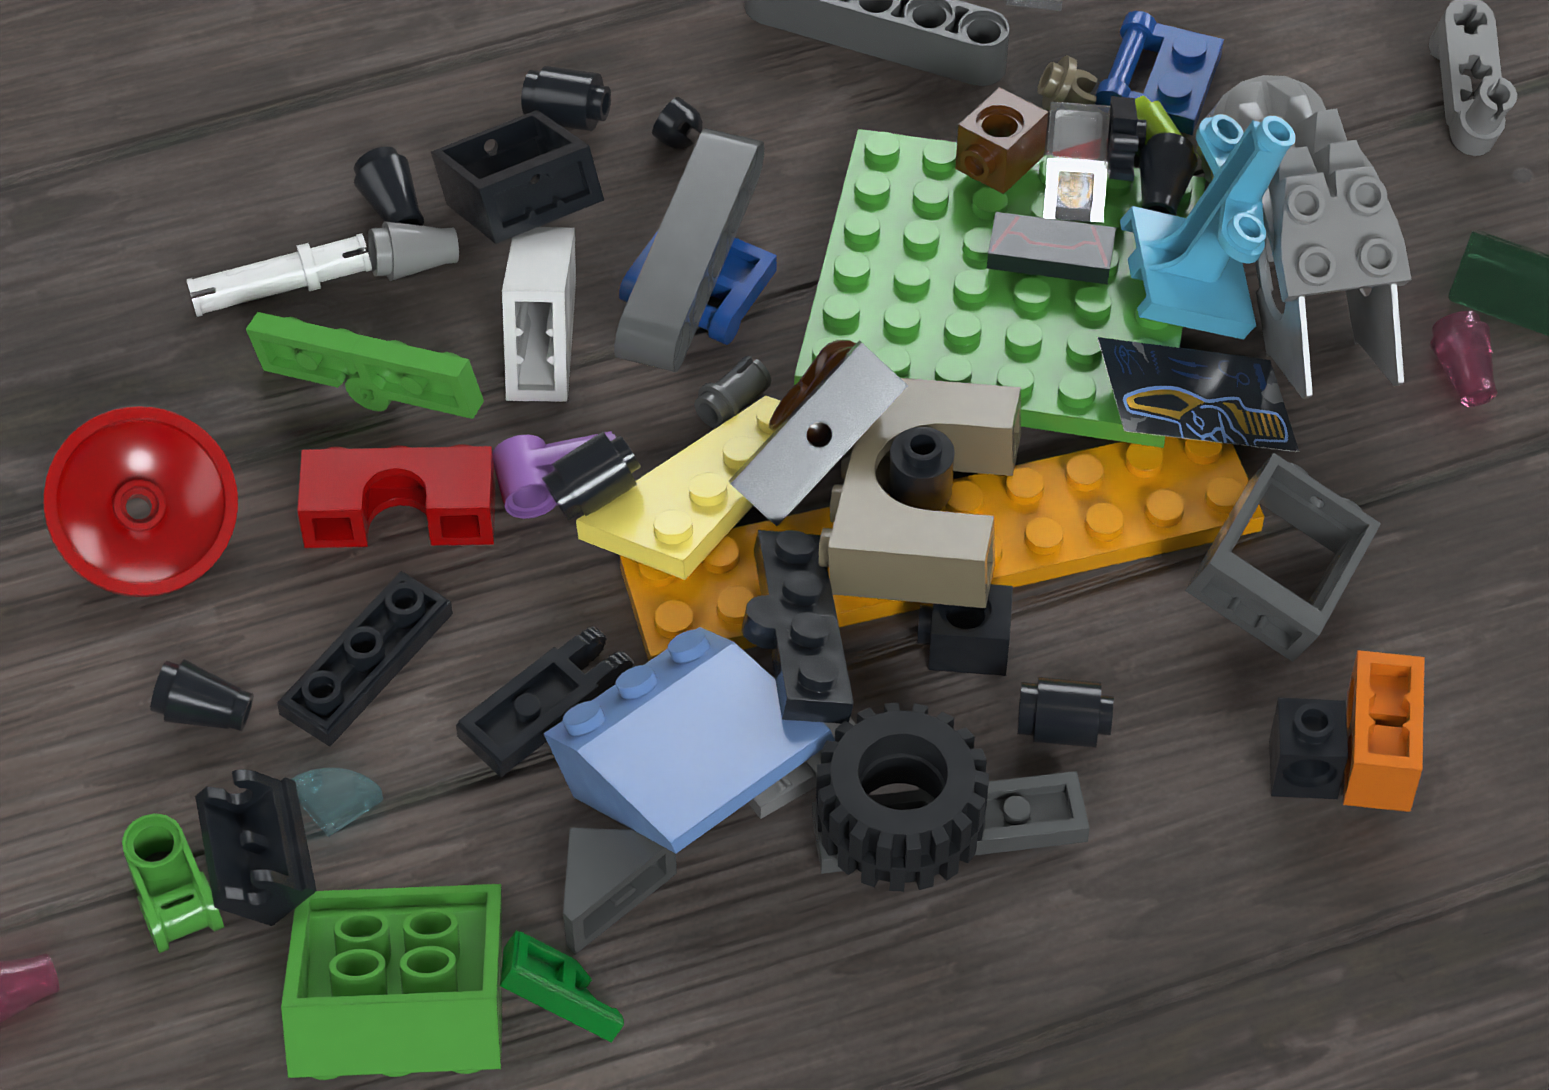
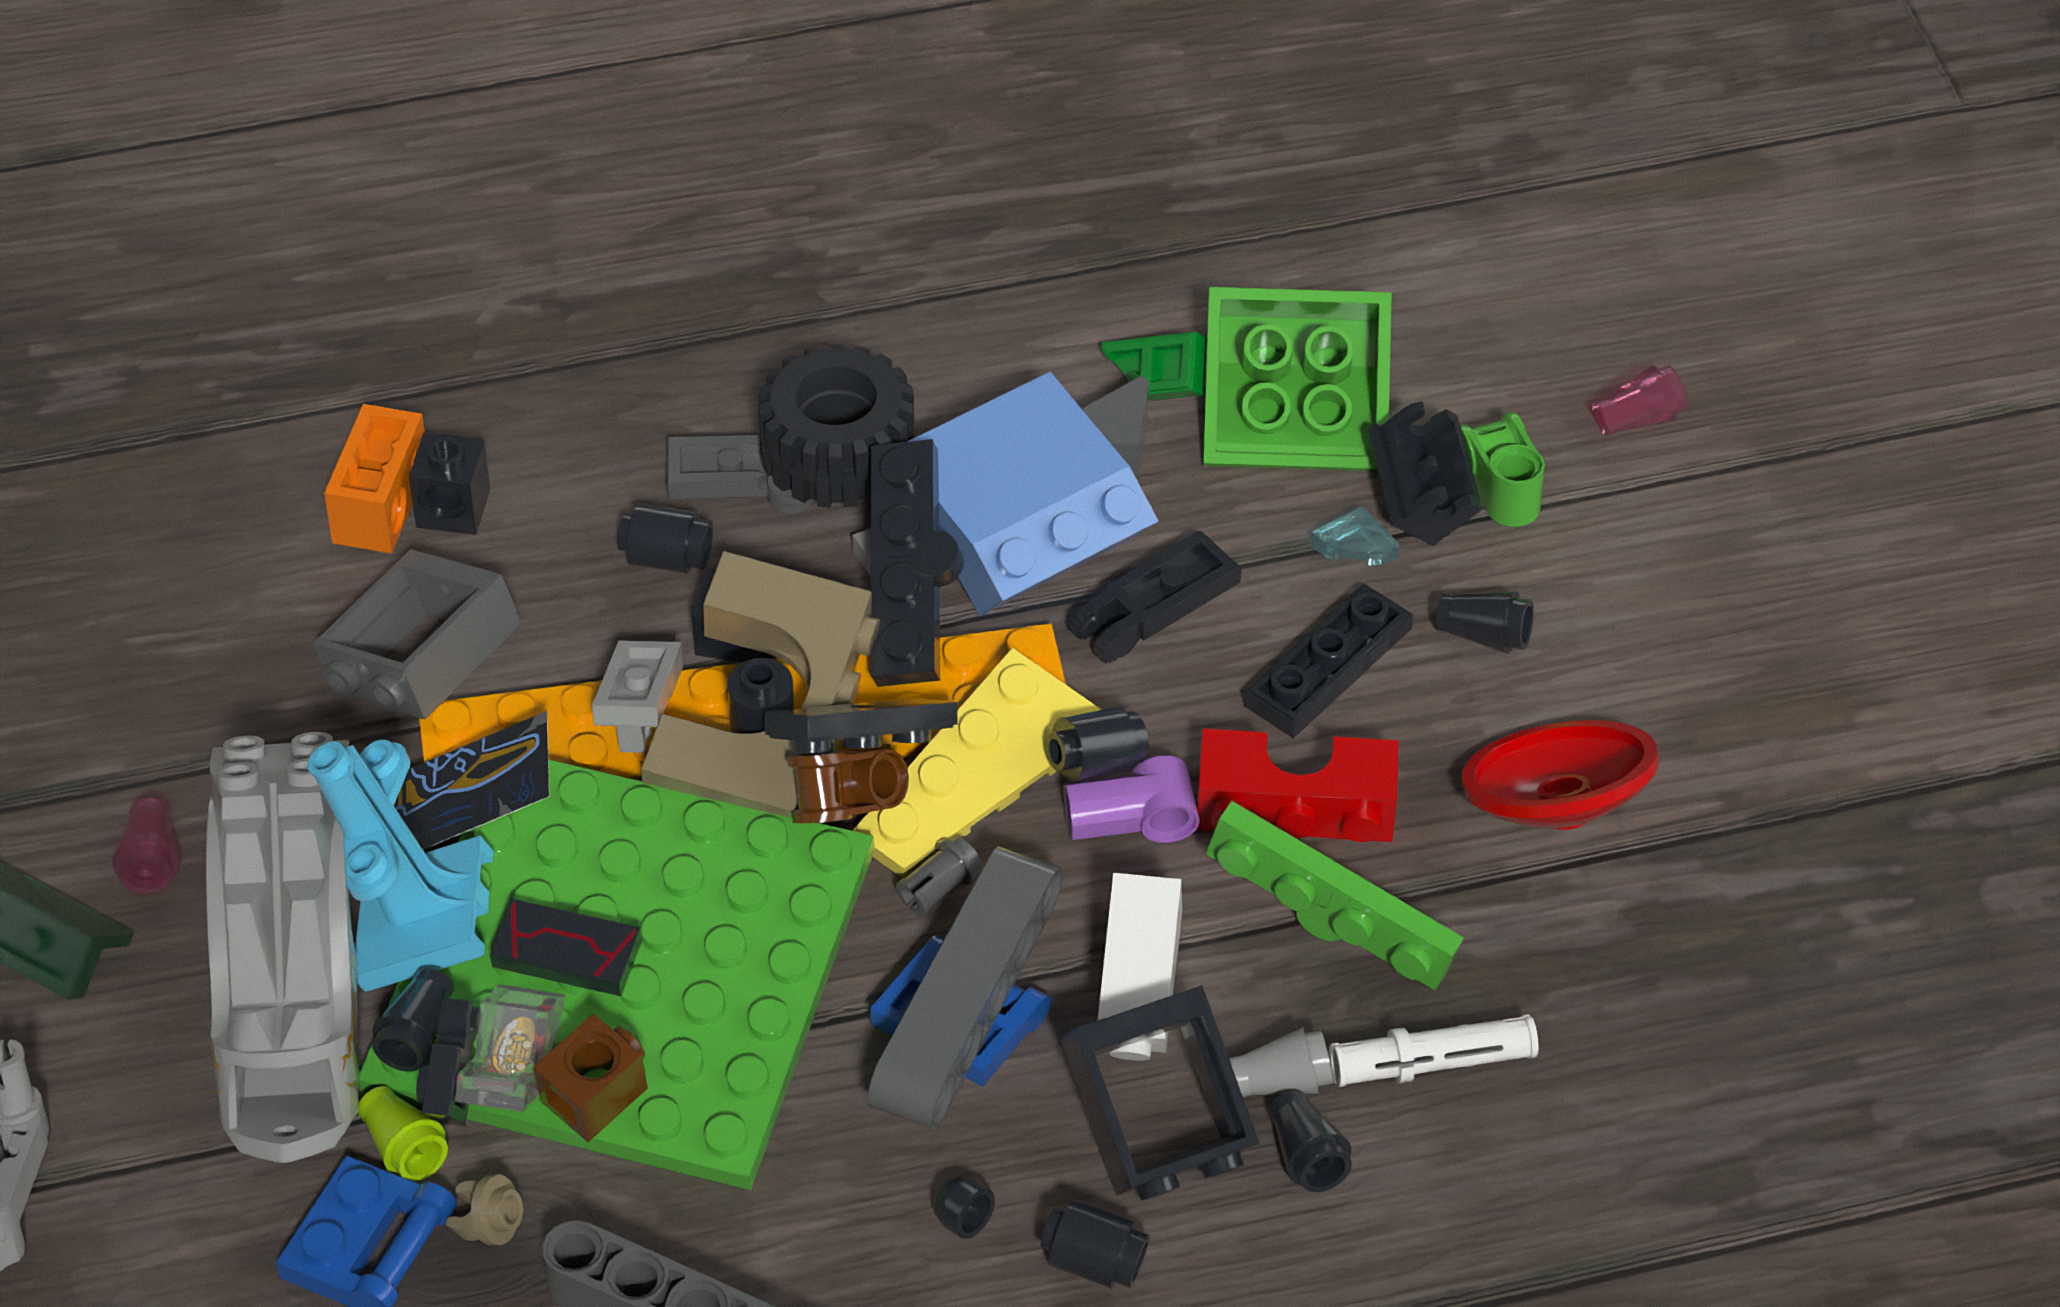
camera: 175 degrees left, 5 degrees down
(1046, 486) = (637, 690): none -> light grey hinge

